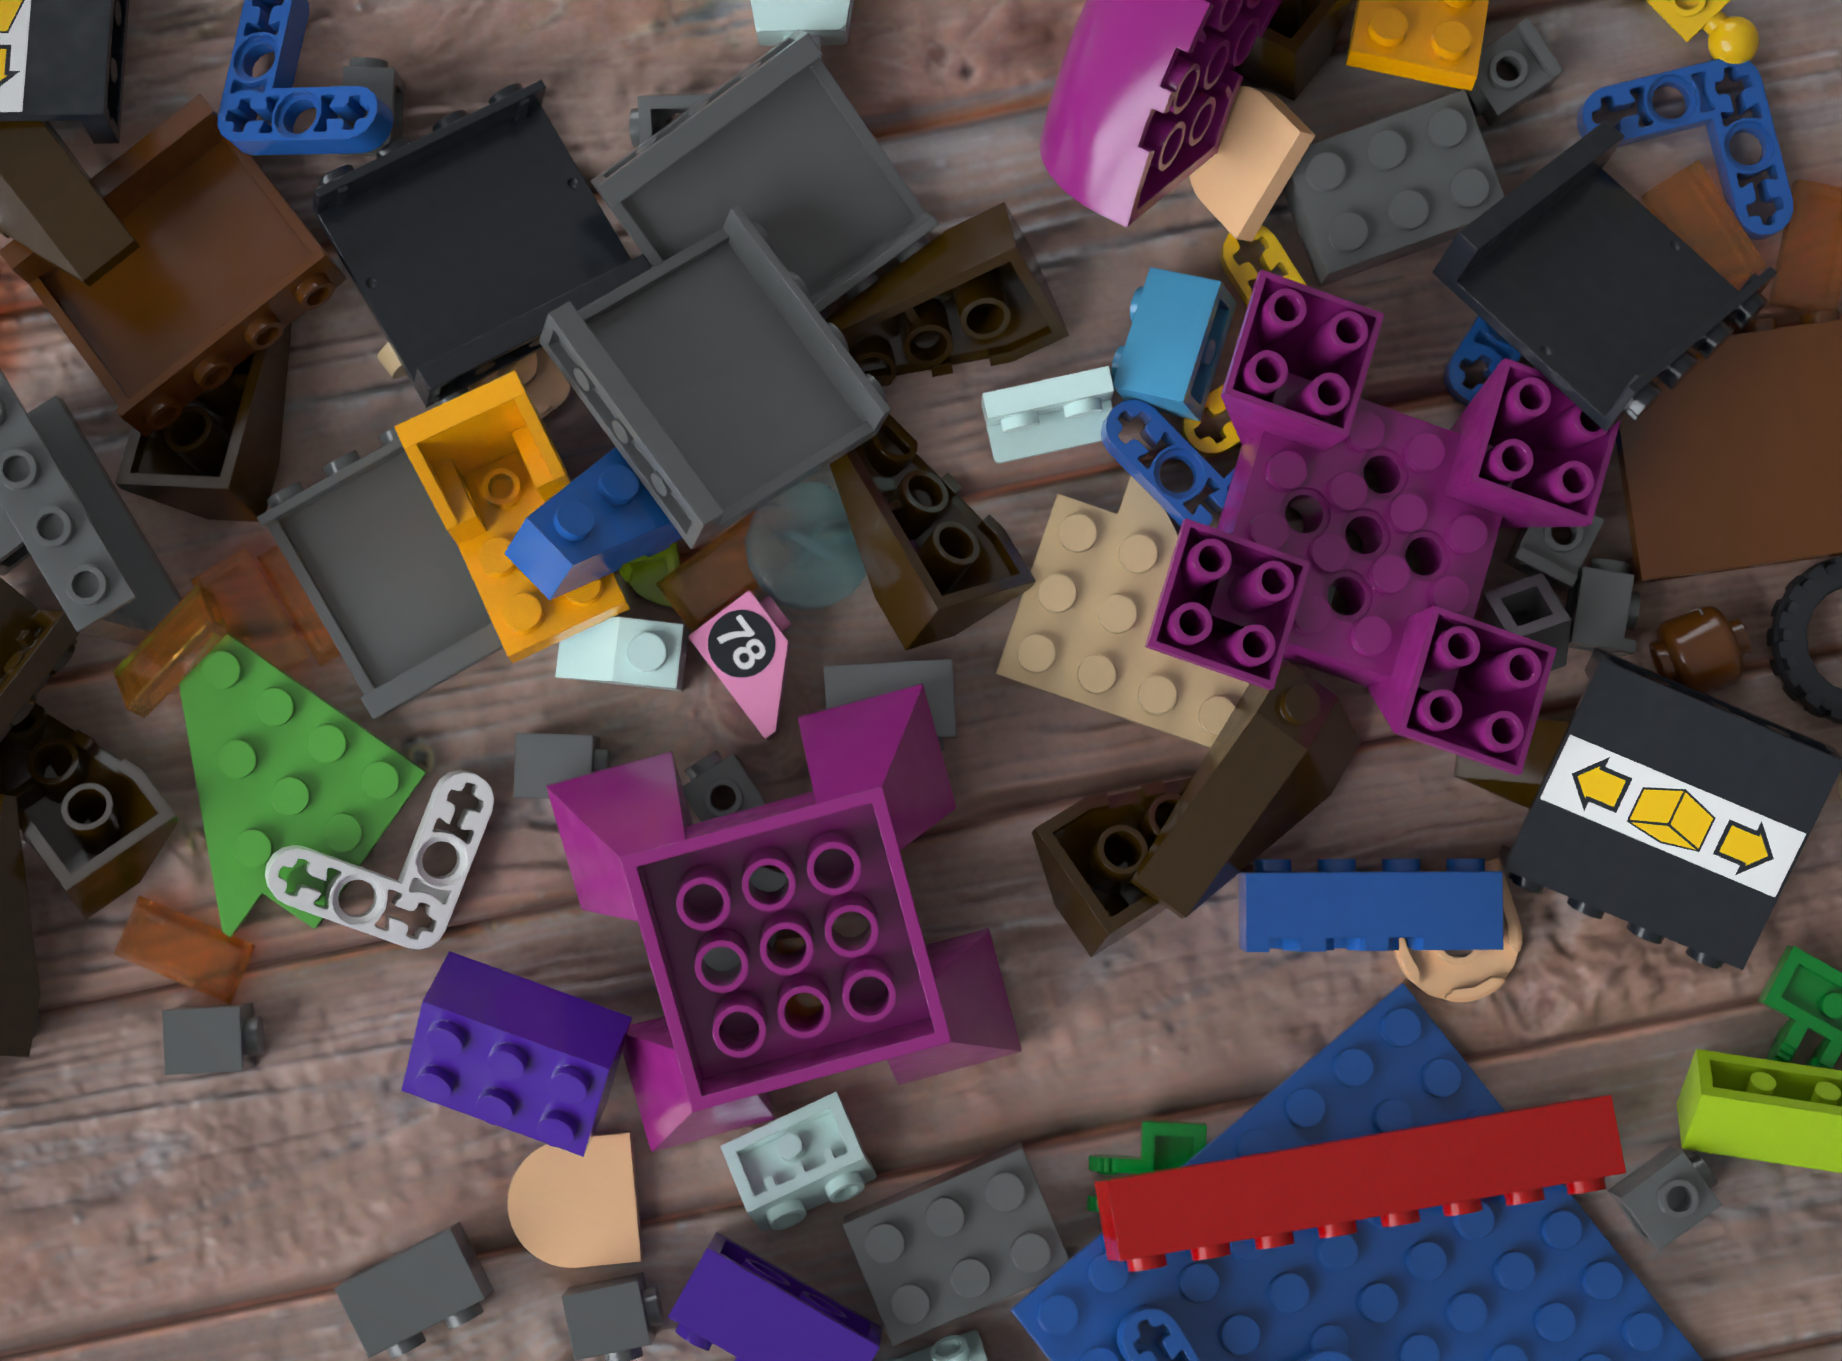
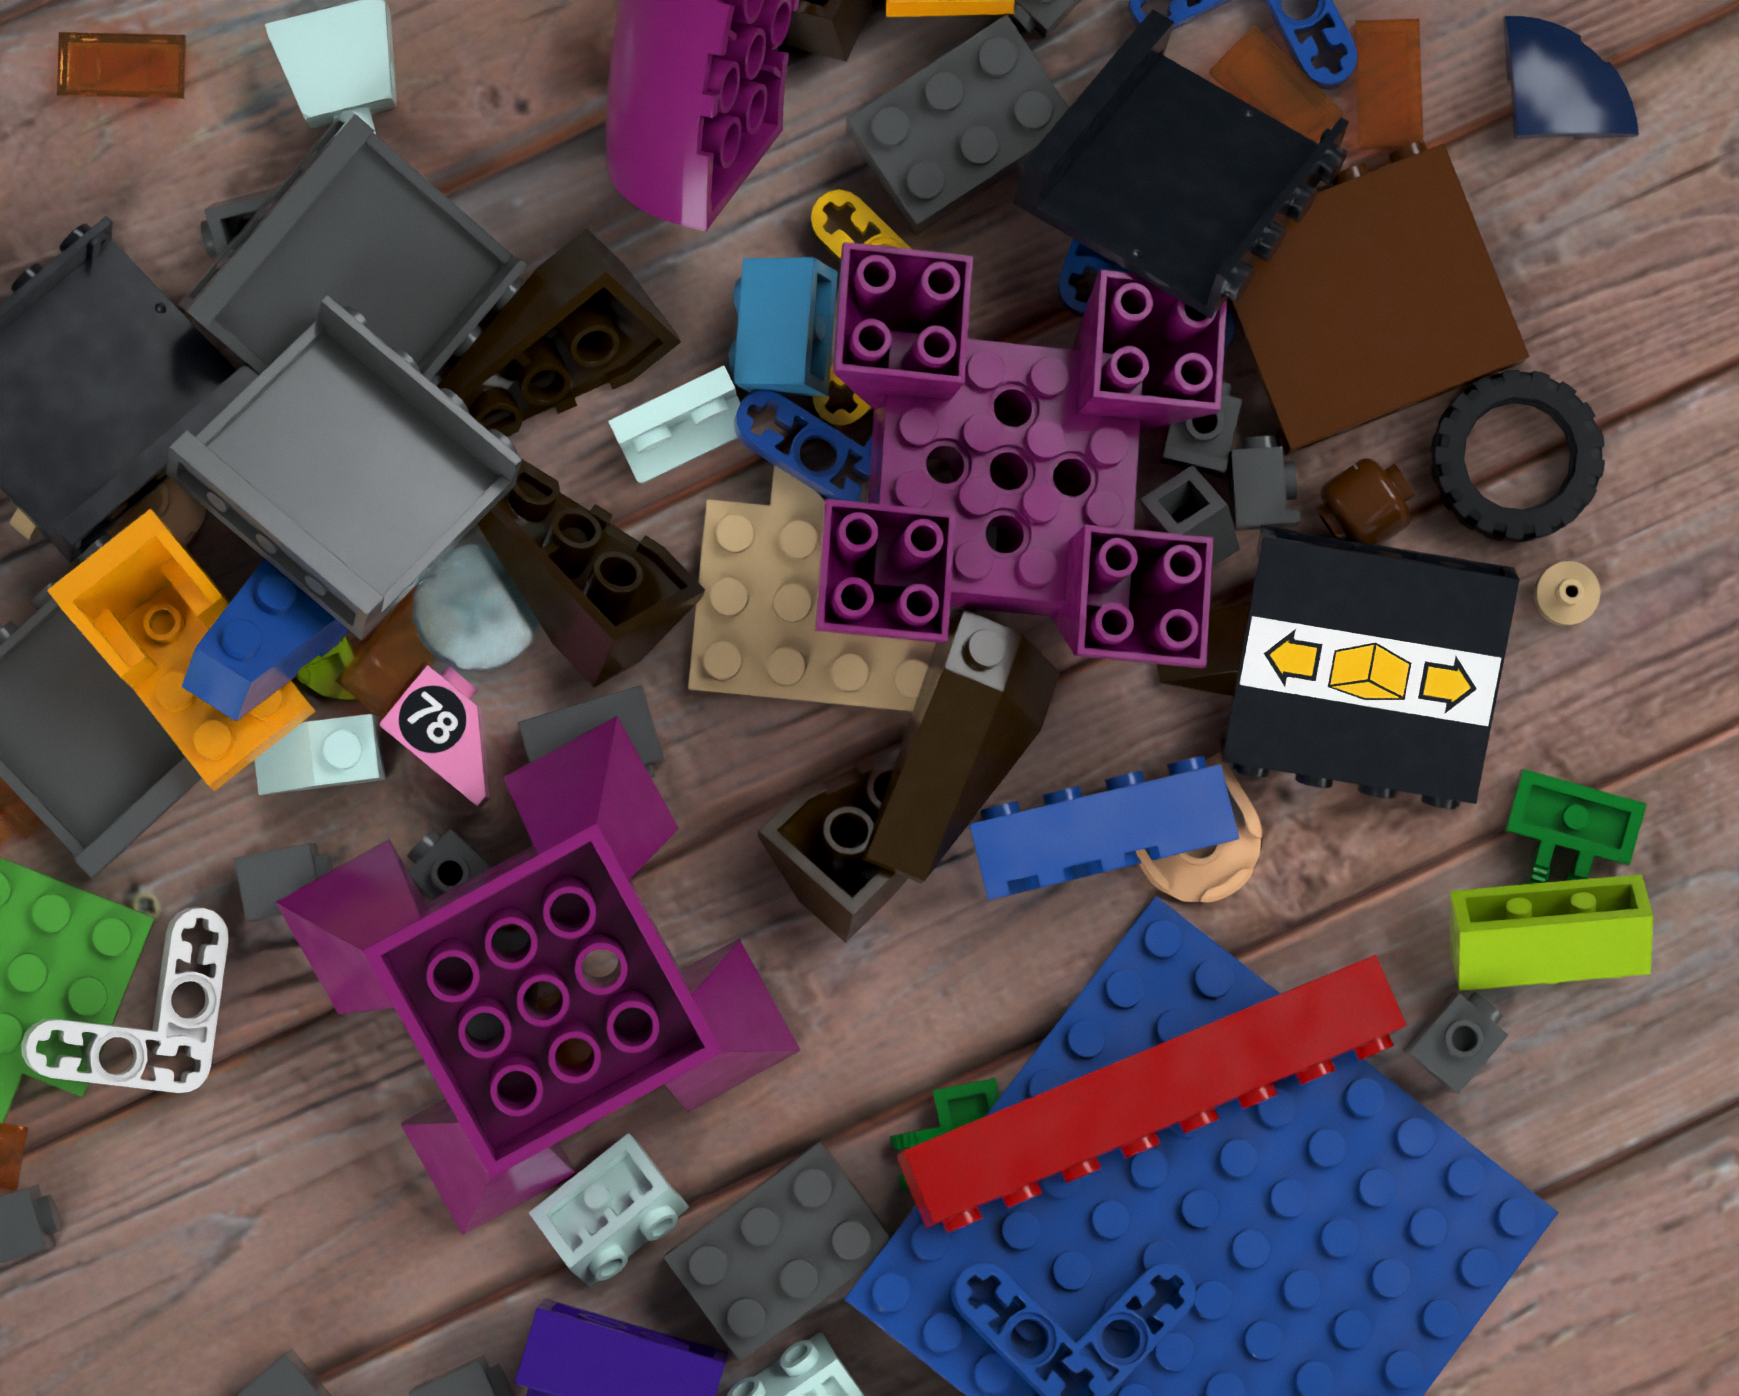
camera: 20 degrees left, 0 degrees up
(515, 1053) = (307, 1168): dark purple brick -> none
(579, 1207) = (403, 1300): light nougat tile -> none
(1252, 162) = (818, 133): light nougat tile -> none

